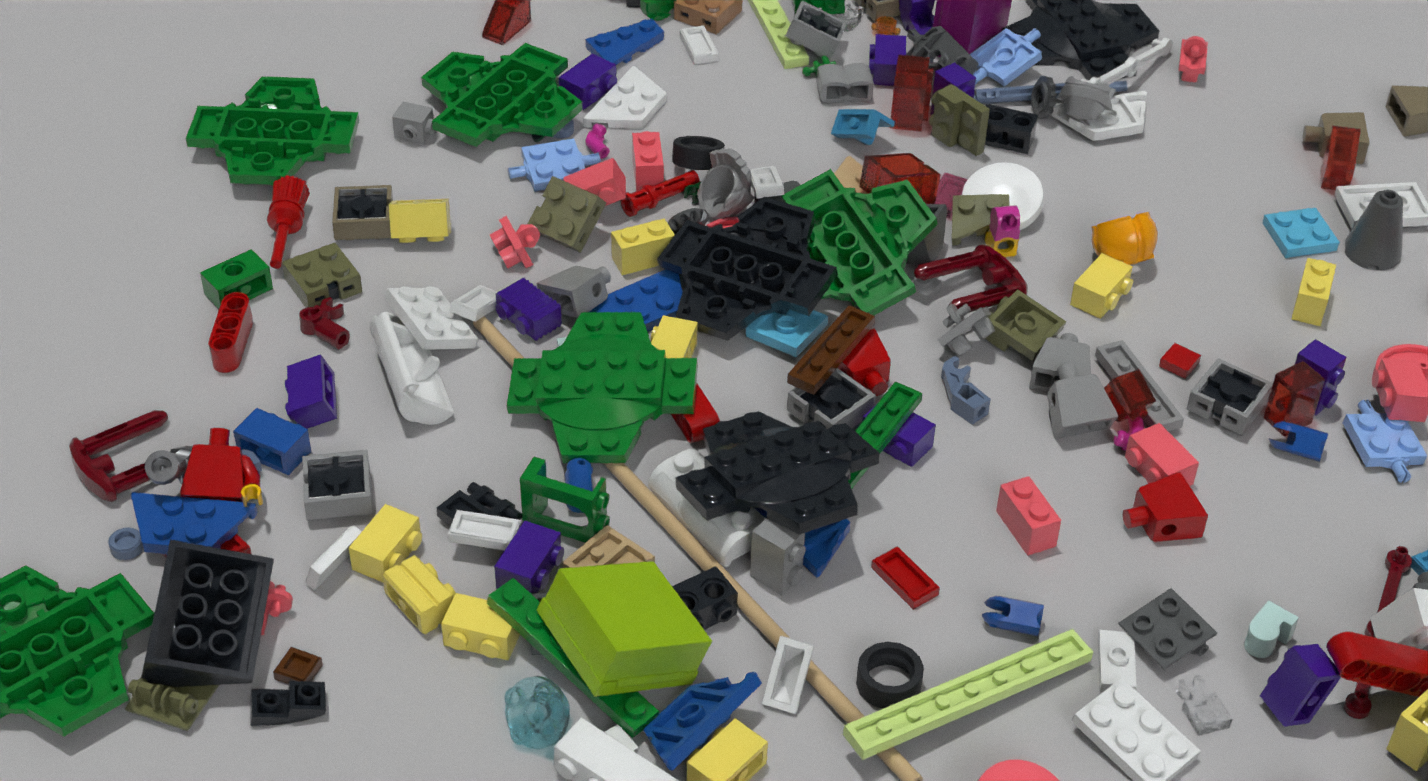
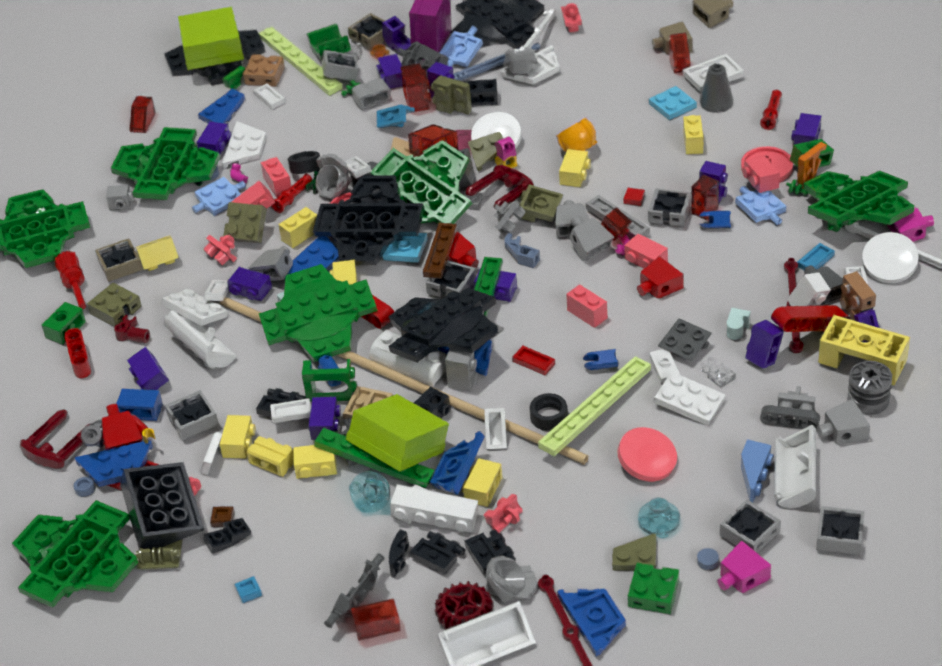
camera: 15 degrees left, 0 degrees up
(694, 214) = (323, 199): dark grey gear -> none
(1043, 97) = (494, 66): dark grey gear -> none

